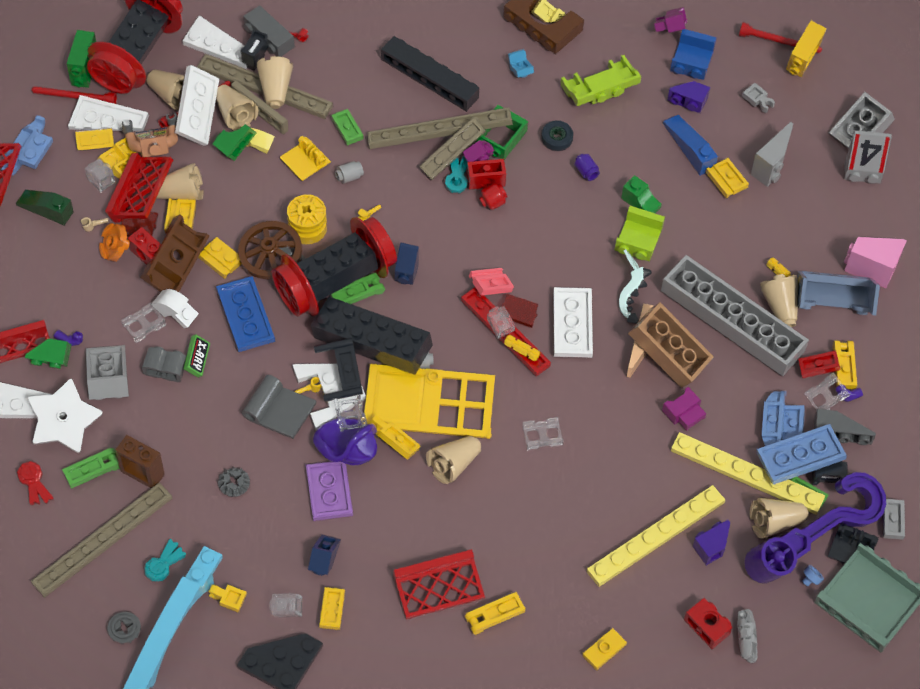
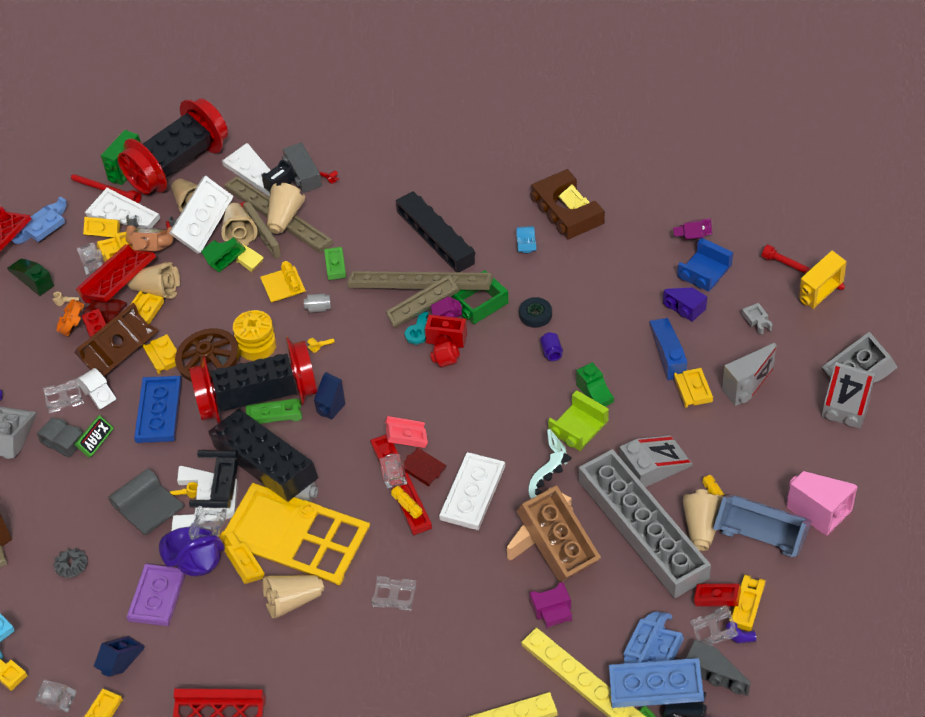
camera: 25 degrees right, 10 degrees down
(603, 84) = (599, 274): lime bracket -> none
(720, 252) = (654, 458): none -> light grey slope

